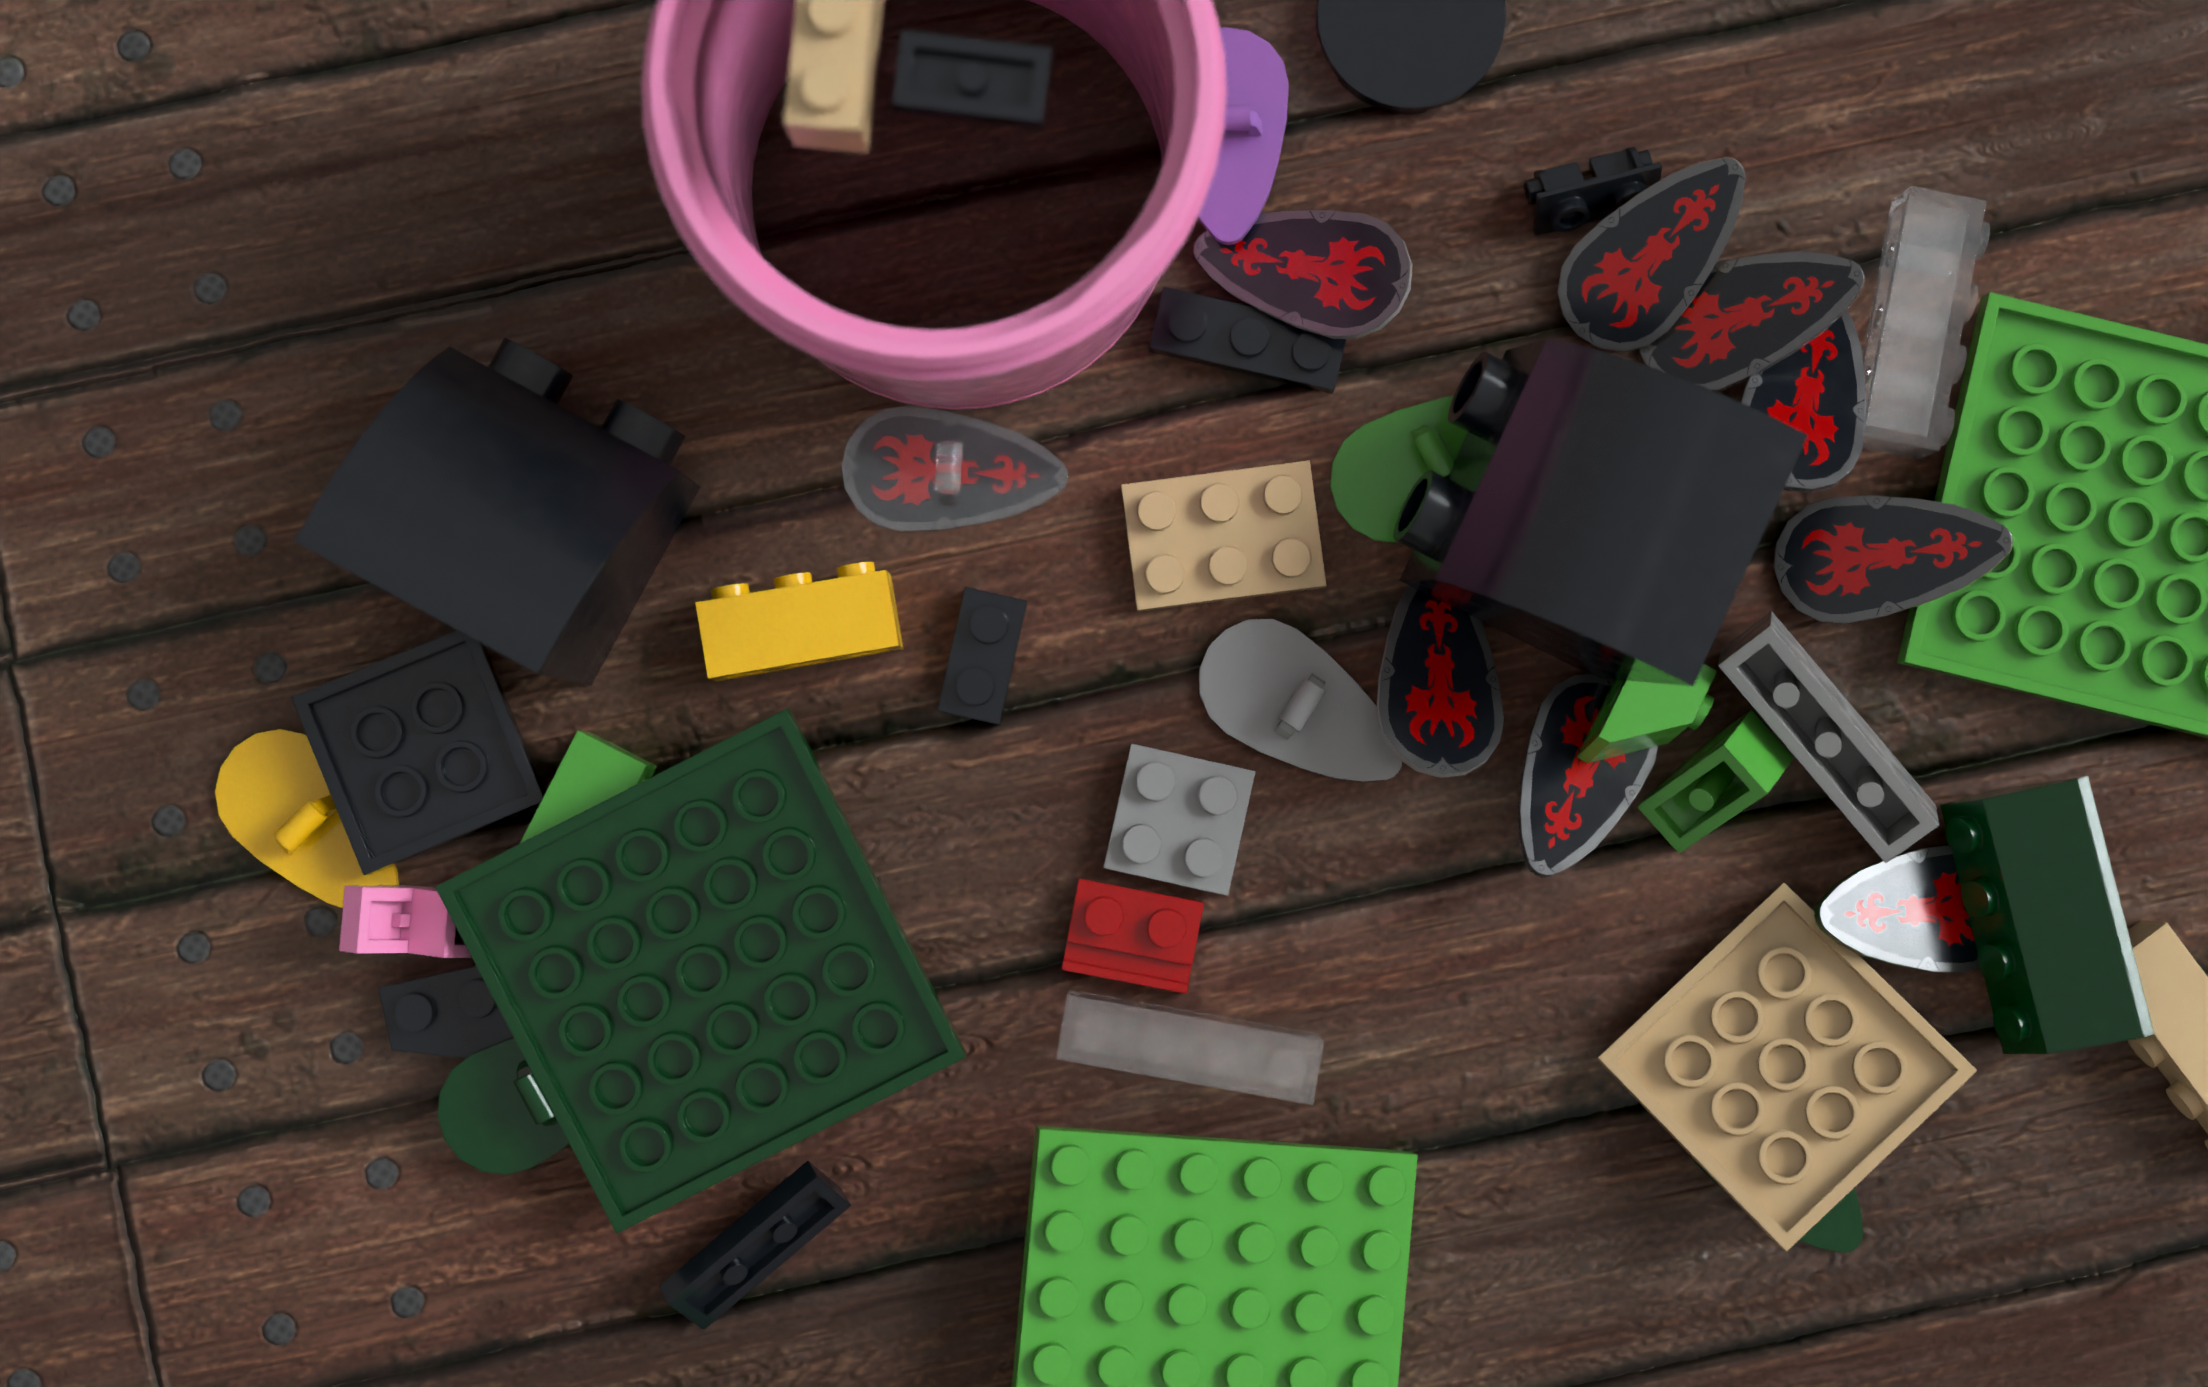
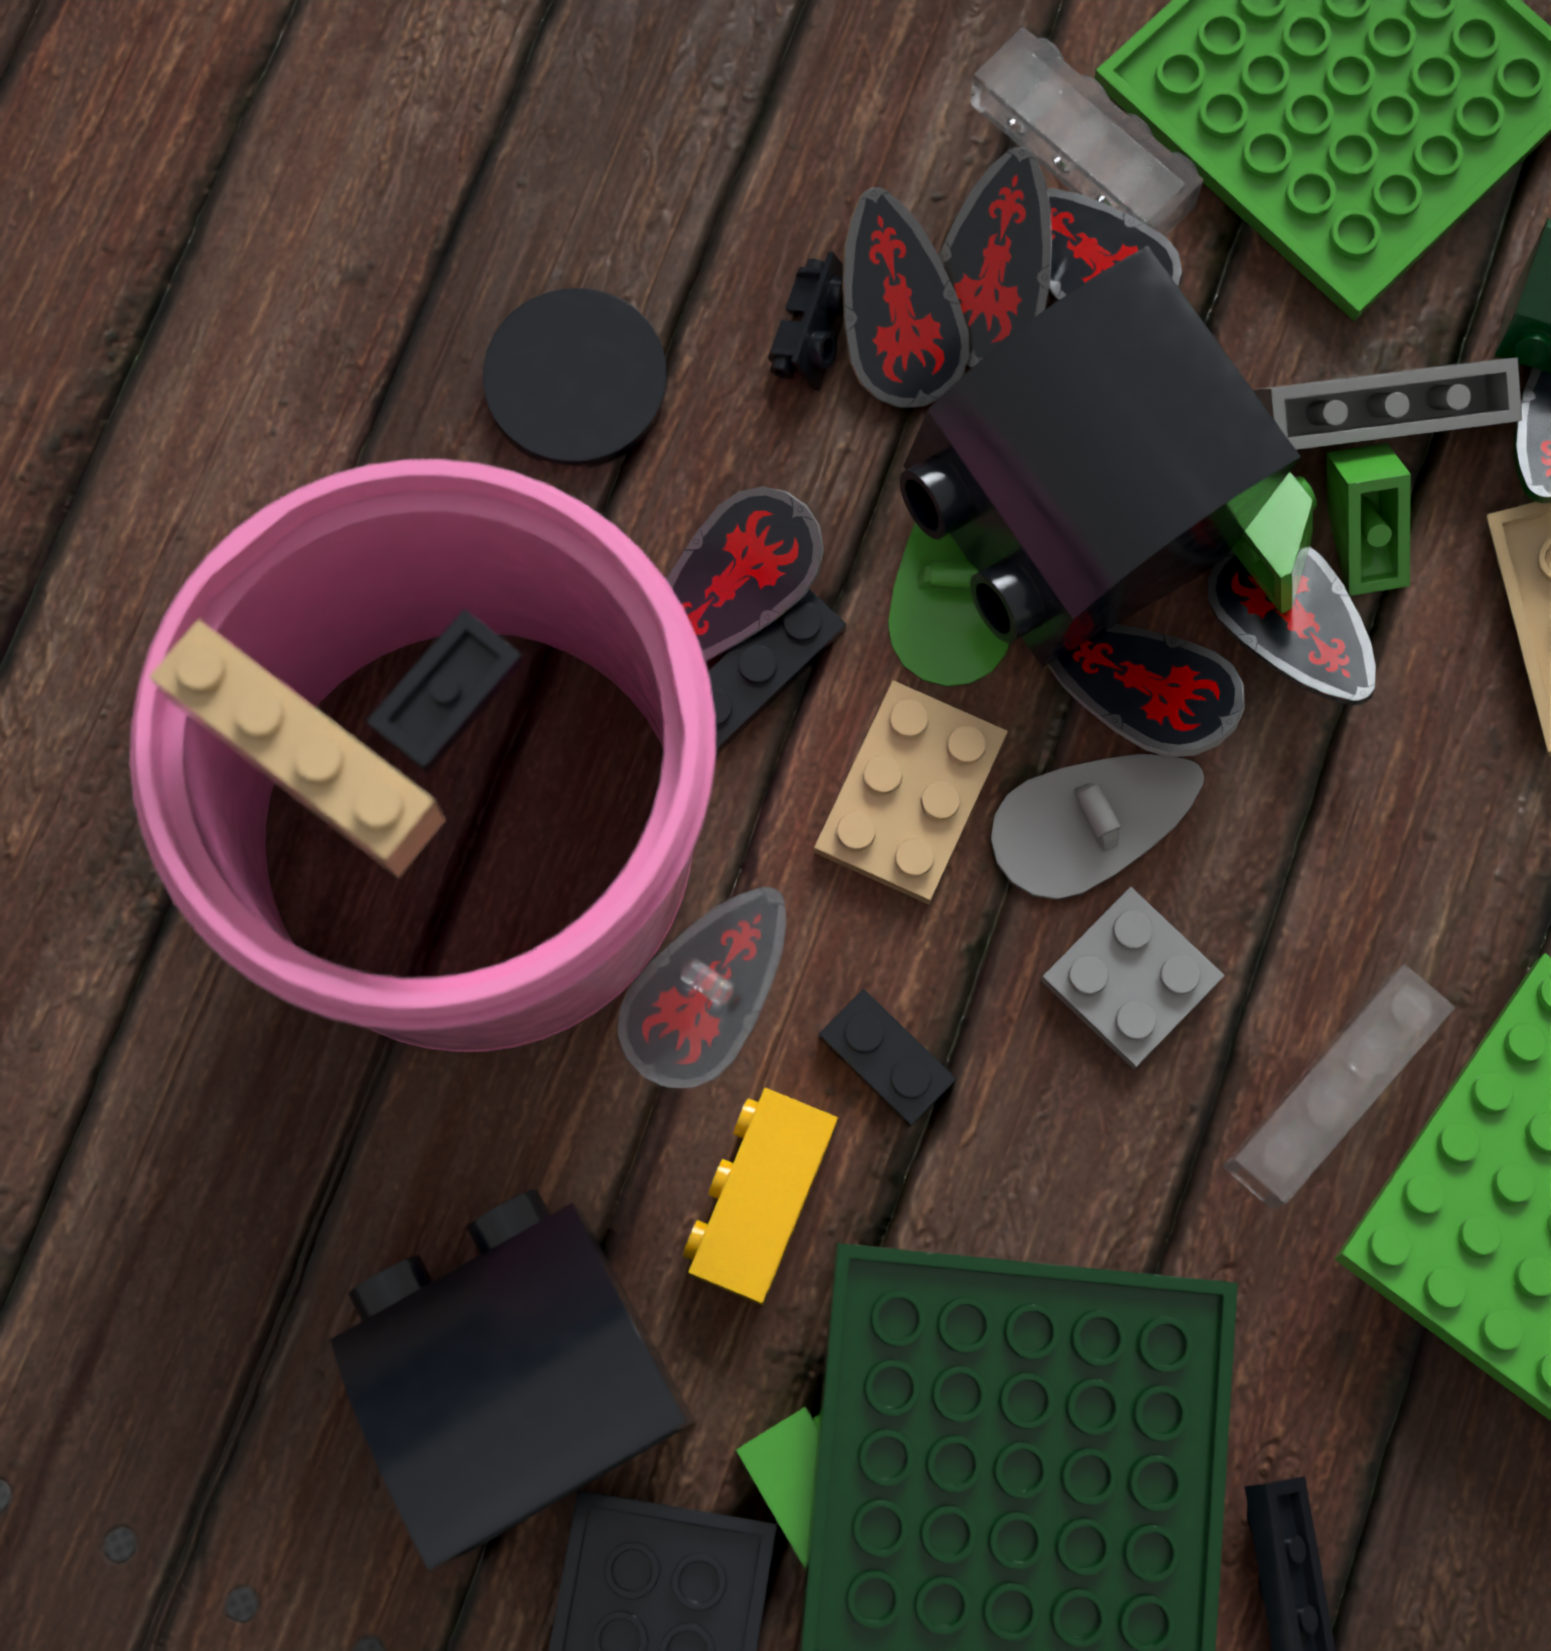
camera: 55 degrees left, 10 degrees down
(1132, 935) = (1209, 1080): red plate -> none
(1882, 555) = (1265, 270): shield -> none

